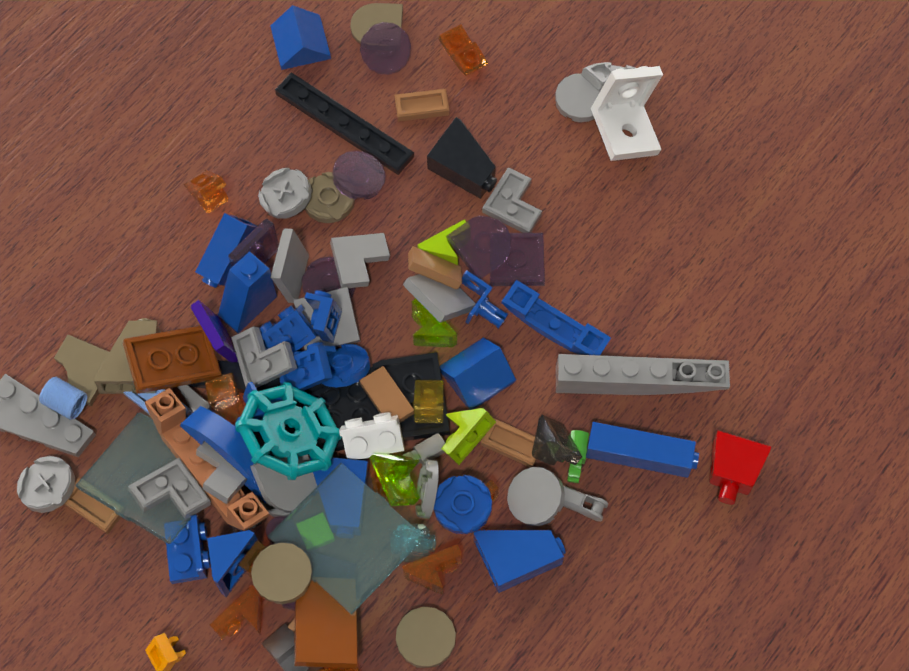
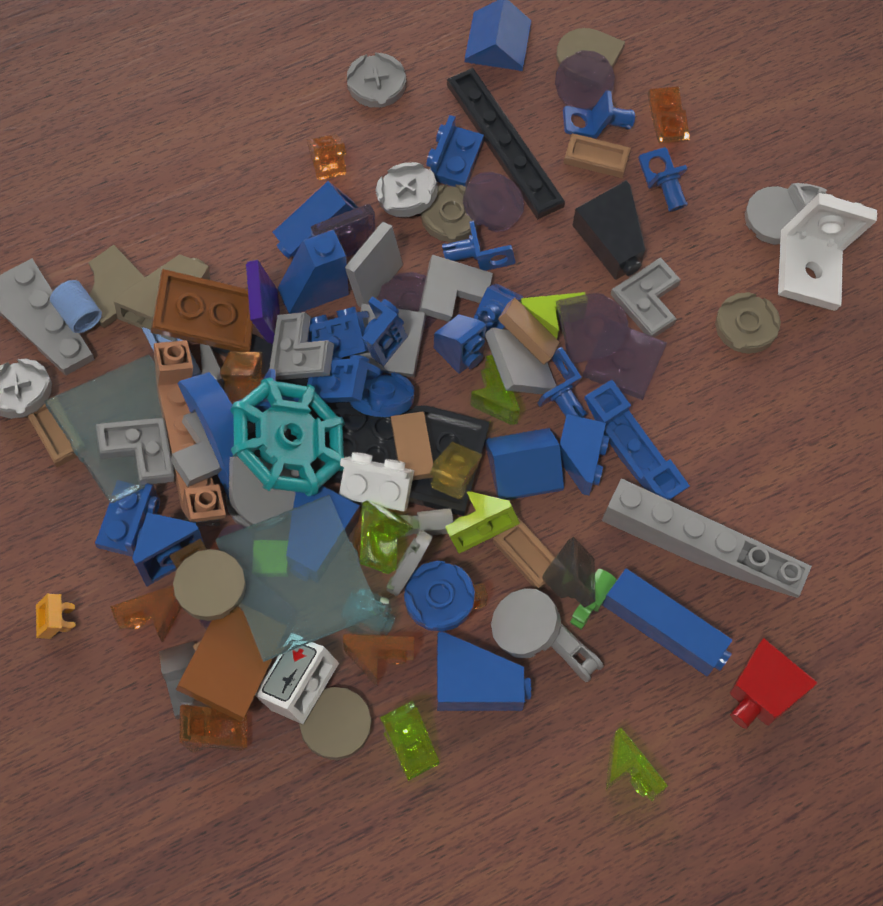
camera: 20 degrees right, 0 degrees up
(217, 112) = (376, 80): none -> light grey tile
(311, 148) = (455, 154): none -> blue bracket
(358, 219) = (471, 248): none -> blue bracket
(383, 618) = (297, 681): none -> brick
(386, 298) = (461, 342): none -> blue slope
(397, 261) = (493, 304): none -> blue bracket
(409, 74) = (598, 118): none -> blue bracket
(485, 102) = (667, 180): none -> blue bracket
(489, 625) = (409, 740): none -> clear neon green slope
(516, 342) = (580, 449): none -> blue slope
(597, 191) = (747, 323): none -> dark tan tile
(657, 565) = (627, 758): none -> clear neon green slope

